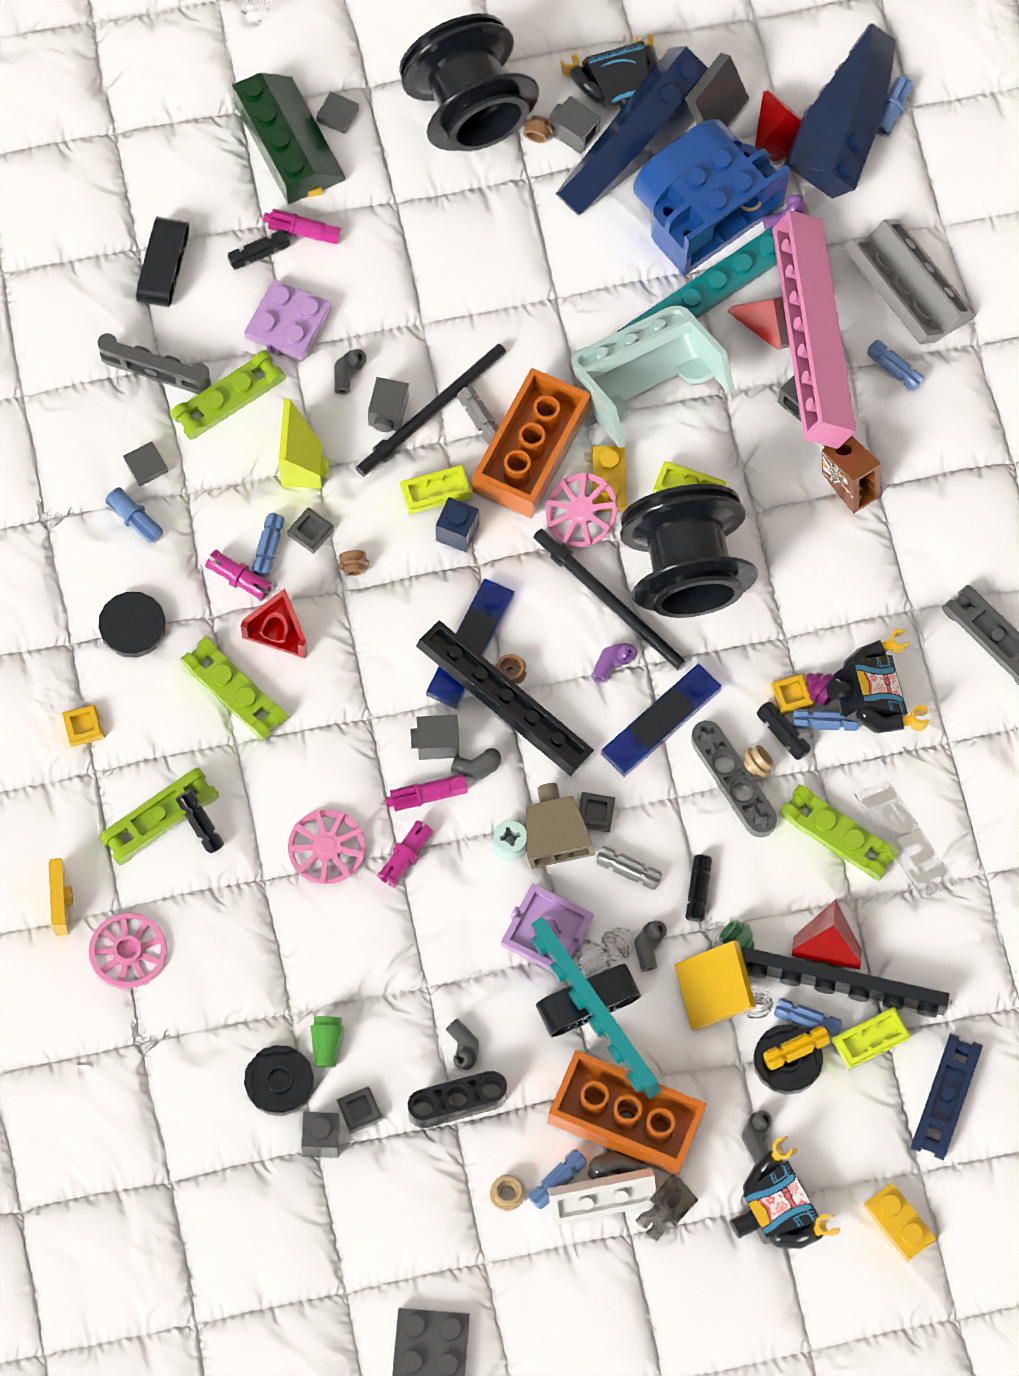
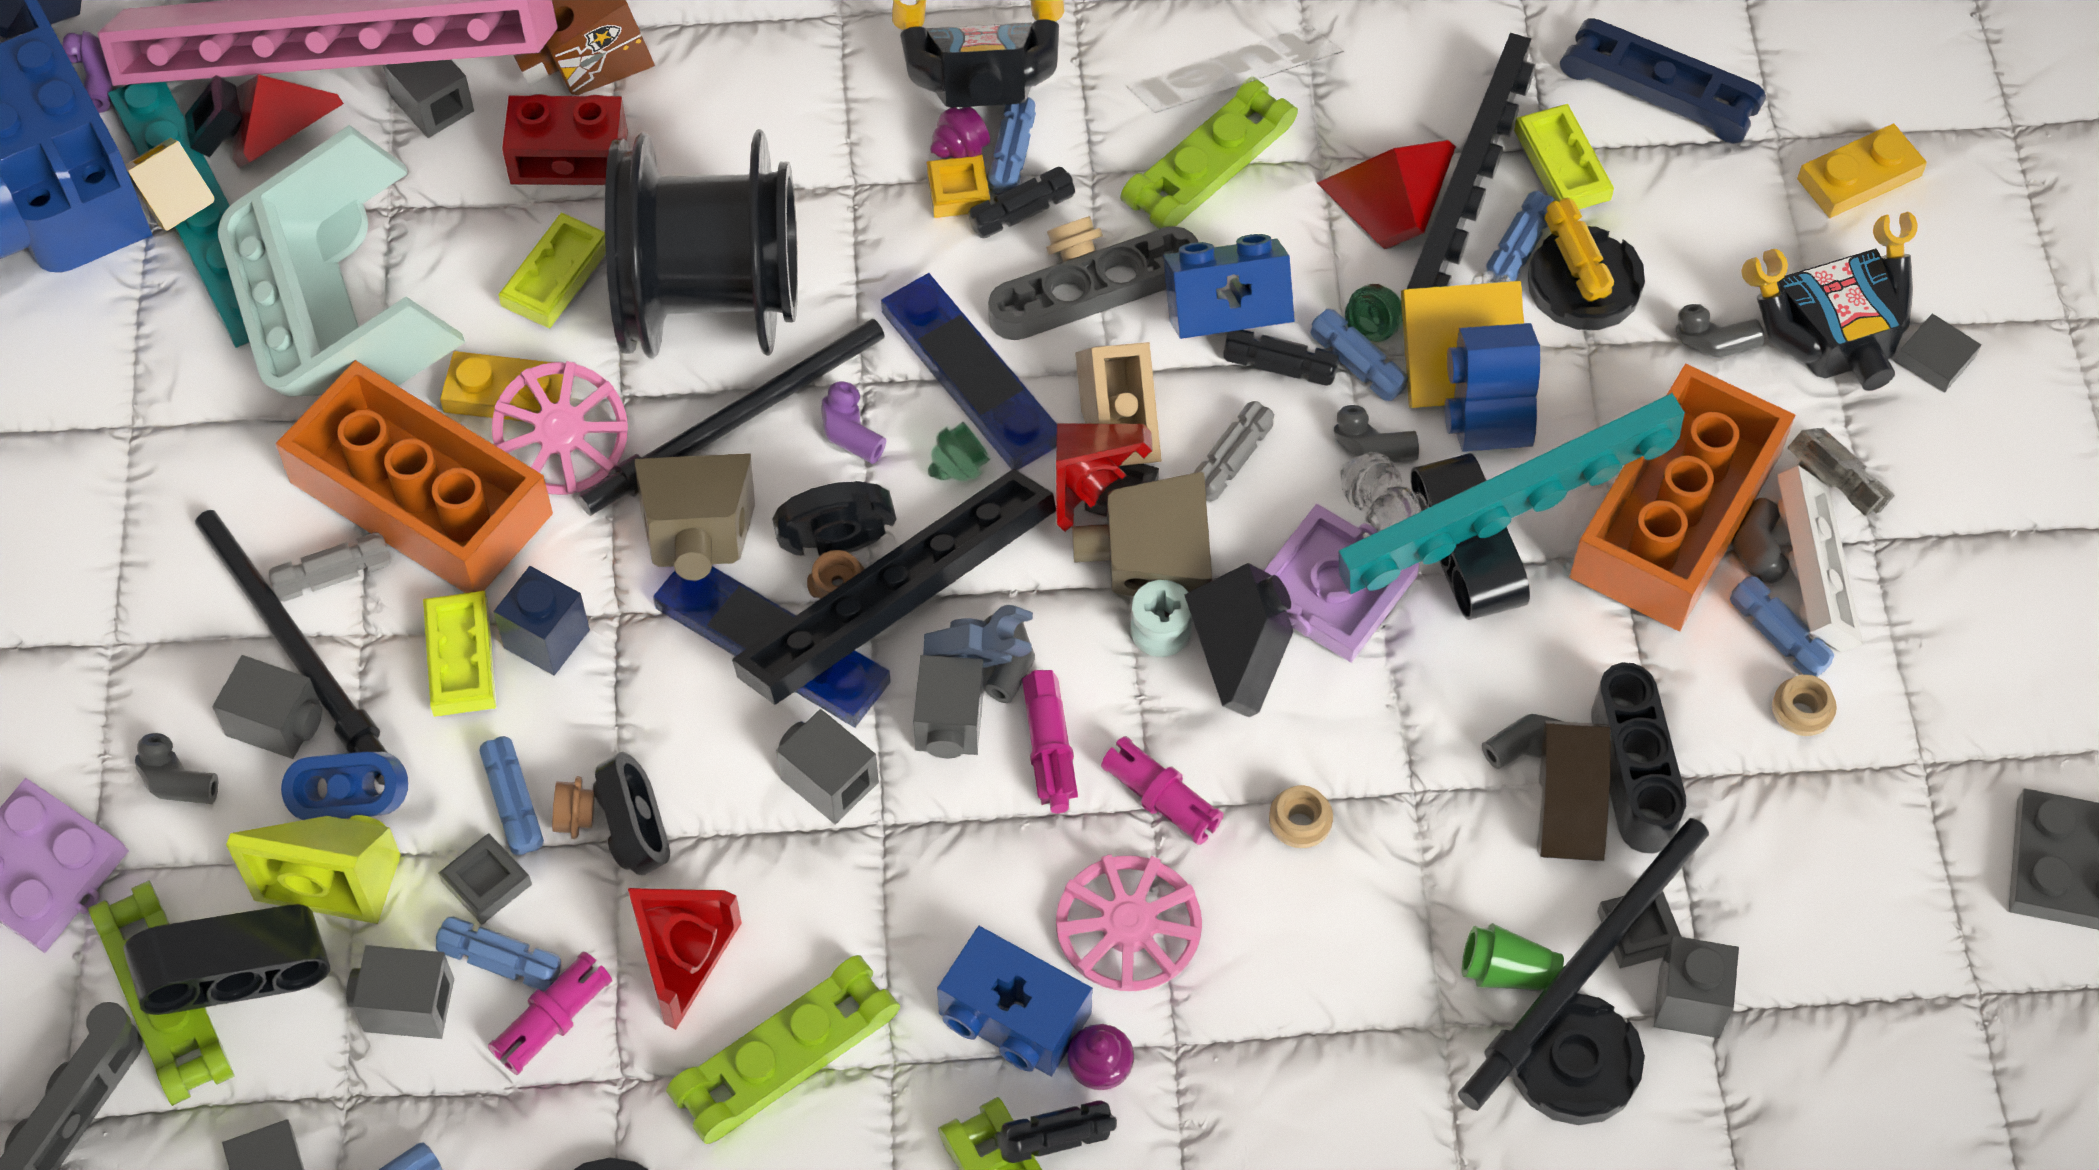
camera: 80 degrees left, 10 degrees down
(238, 503) = (401, 991): none -> dark grey brick
(240, 418) = (226, 959): none -> black beam
(247, 841) = (1100, 1057): none -> magenta plate
(269, 811) = (998, 974): none -> blue brick
(270, 1040) = (1512, 1048): none -> black bar
(346, 450) = (349, 785): none -> blue plate
(351, 591) = (632, 814): none -> black plate
(358, 532) = (511, 795): none -> medium blue axle
(393, 681) = (826, 765): none -> dark grey brick
(397, 917) = (1305, 801): none -> tan plate
(428, 1064) = (1574, 790): none -> dark brown slope
(472, 742) = (981, 640): none -> sand blue plate
(495, 880) = (1242, 633): none -> black slope
(534, 587) = (696, 510): none -> dark tan torso
(535, 657) = (834, 518): none -> black tile
(591, 780) = (1090, 461): none -> red slope
(601, 721) = (957, 454): none -> clear green plate
(642, 798) = (1119, 389): none -> tan slope
(679, 1000) = (1494, 387): none -> blue brick
(700, 271) = (169, 184): none -> panel
(707, 930) = (1359, 354): none -> medium blue axle
(731, 849) = (1256, 297): none -> blue brick
(758, 285) = (213, 117): none -> black plate
(766, 1269) = (1938, 352): none -> dark grey tile
(779, 473) = (561, 138): none -> red brick

